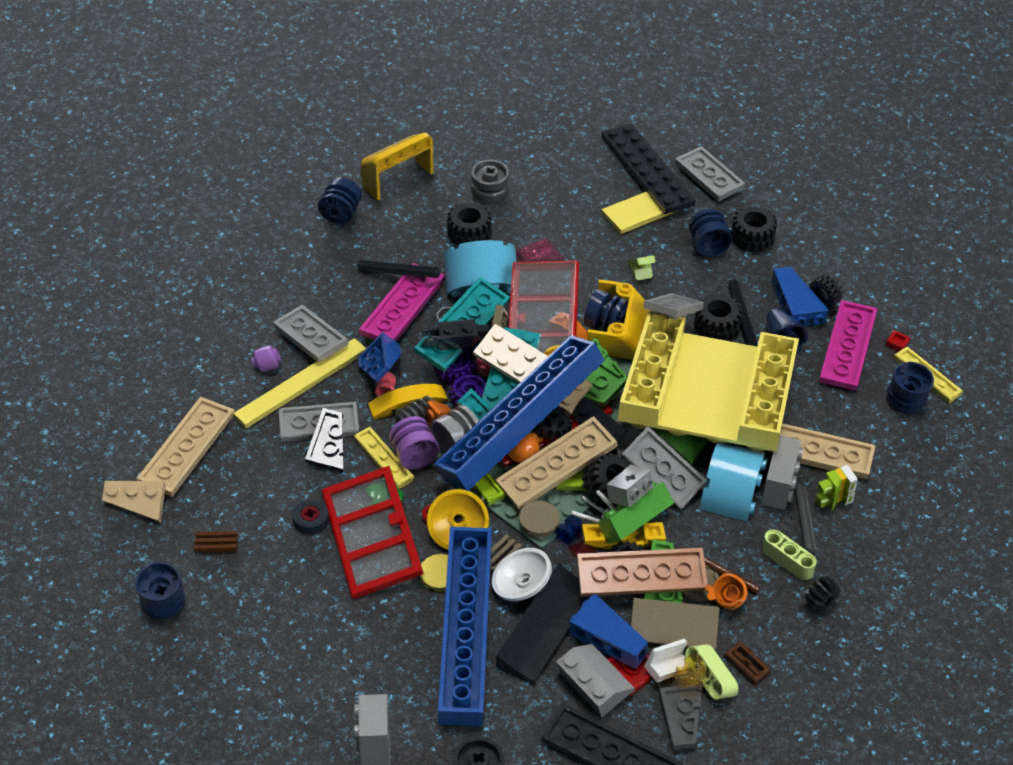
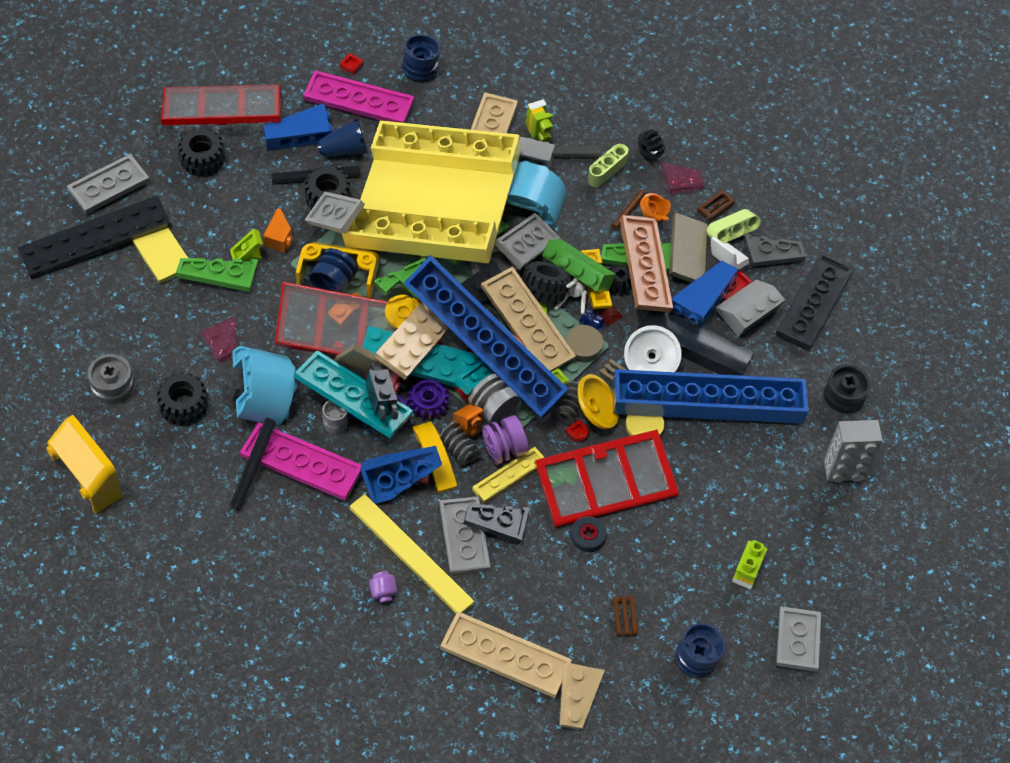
camera: 95 degrees left, 10 degrees up
(166, 688) = (798, 639): none -> light grey plate
(257, 648) = (749, 564): none -> lime hips
(310, 333) = (346, 546): light grey plate -> none
(339, 200) = (140, 524): dark blue wheel -> none
(612, 250) = (228, 274): none -> bright green wing
(629, 486) = (566, 258): light grey brick -> none
(664, 283) = (278, 233): none -> orange slope
(692, 672) = (742, 236): clear yellow hair -> none
(710, 232) = (211, 184): dark blue wheel -> none
(784, 630) = (681, 178): none -> clear pink wing
(815, 239) = (221, 104): none -> clear door
(826, 290) = (296, 101): black tyre -> none
(942, 386) = (388, 50): light yellow tile -> none

